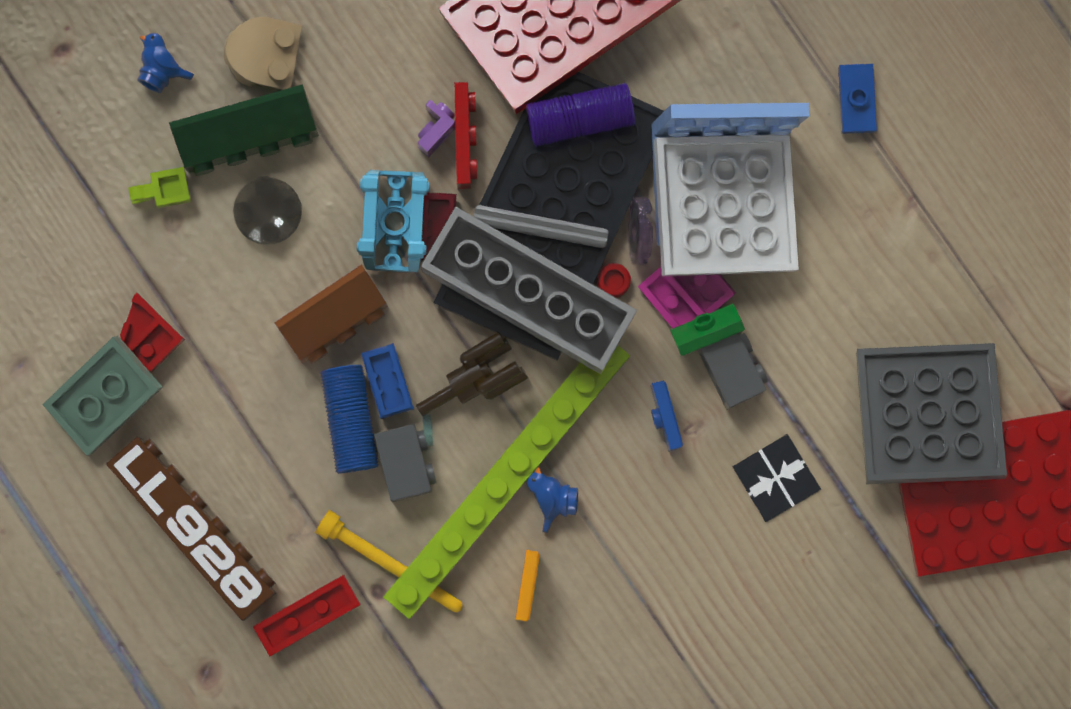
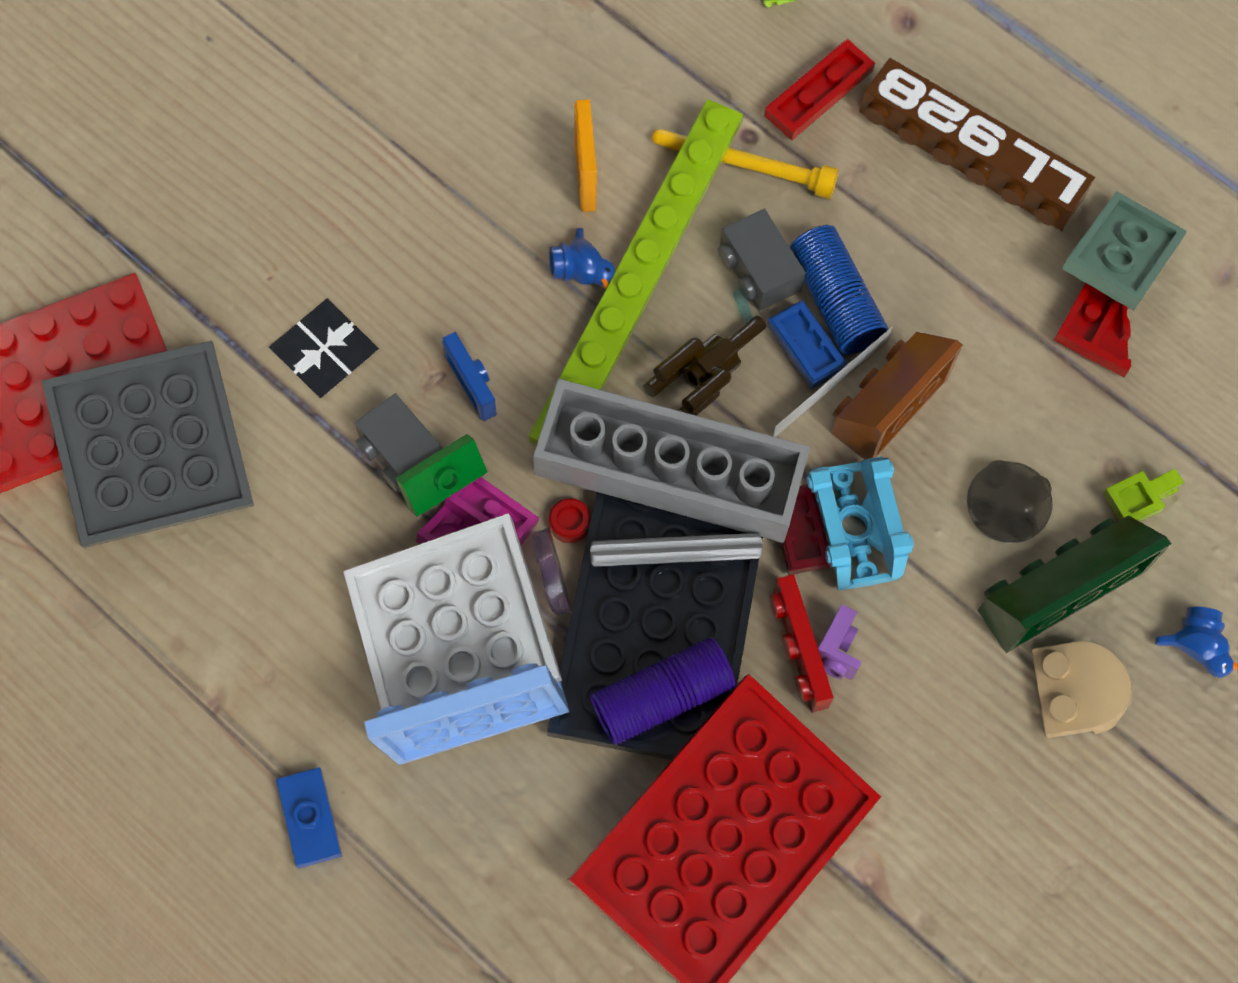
camera: 170 degrees right, 15 degrees down
(379, 341) = (832, 383): none -> white sticker

